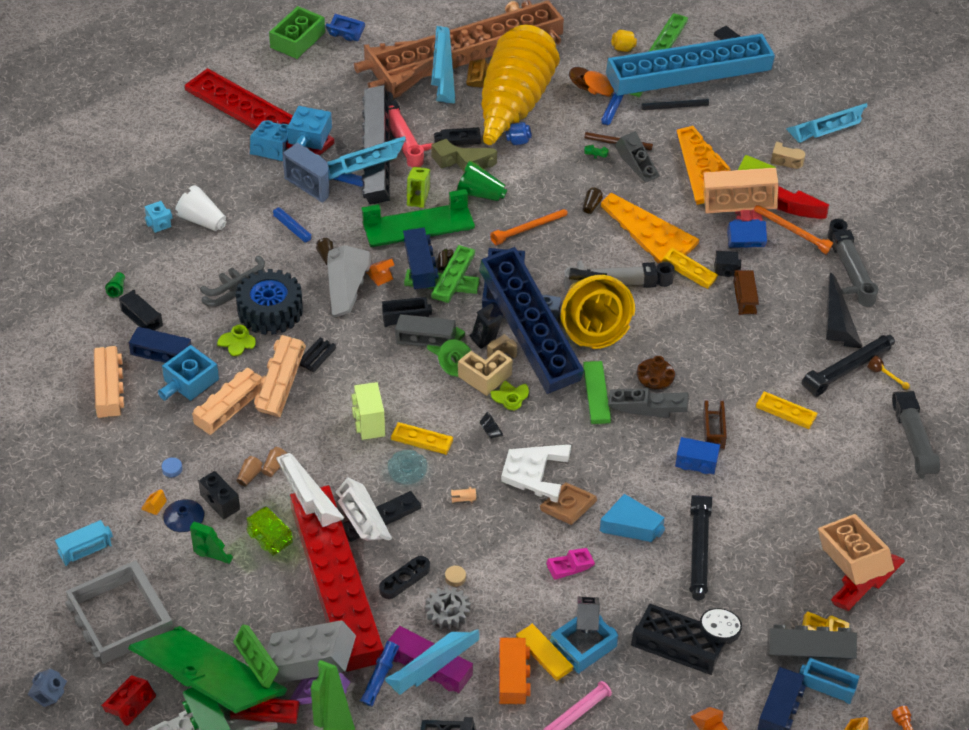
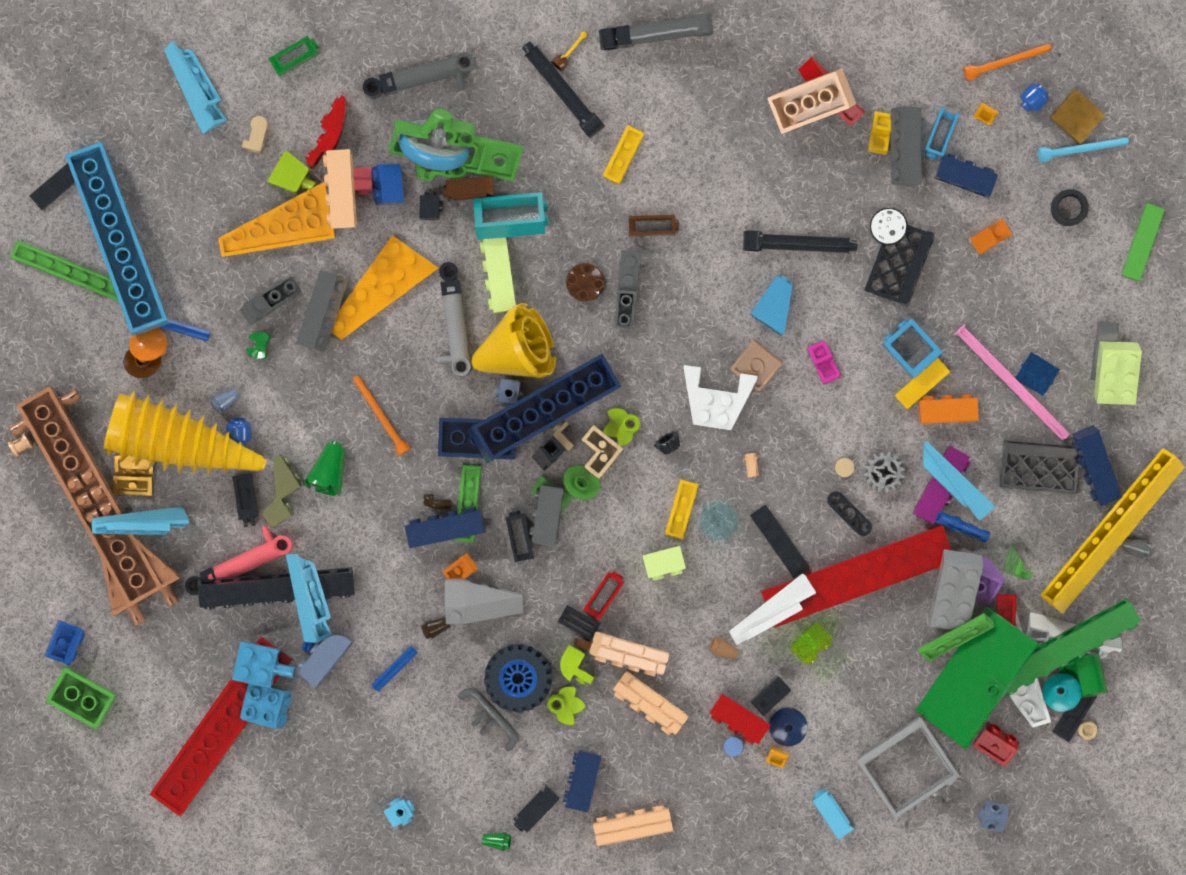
camera: 90 degrees left, 40 degrees up
(188, 374) = (623, 746): dark azure brick -> none
(200, 210) = (388, 767): white cone -> none
(205, 461) = (739, 719): none -> red brick
(207, 543) = (832, 702): green wing -> none
(249, 470) = (735, 671): medium nougat cone -> none
(266, 348) = (569, 665): none -> lime brick
(341, 370) = (604, 595): none -> window
(361, 511) = (785, 557): white wedge -> none
(418, 180) = (338, 537): lime torso -> none
(436, 220) = (386, 533): green bracket -> none
(453, 274) = (462, 491): bright green tile -> none
(547, 127) = (224, 400): none -> sand blue cone
(576, 274) = (470, 351): black pin -> none
(588, 614) = (897, 344): slope -> none
(592, 200) = (340, 349): dark brown cone -> none
(596, 392) = (611, 341): bright green tile -> none
(609, 139) = (238, 321): reddish brown bar -> none
(623, 40) = (69, 316): yellow head -> none
(627, 186) = (322, 311): none -> dark grey brick
(667, 309) = (499, 274): none -> yellowish green brick
(675, 104) = (172, 257): black bar -> none
(690, 268) = (437, 246): yellow tile -> none
(697, 455) = (692, 243): blue brick -> none
(720, 313) = (510, 216): none -> teal window
(786, 245) = (442, 148): none -> bright green piece
(823, 245) = (395, 103): orange piece -> none
(839, 321) = (508, 93): black wedge -> none
(861, 181) = (294, 56): none -> green window

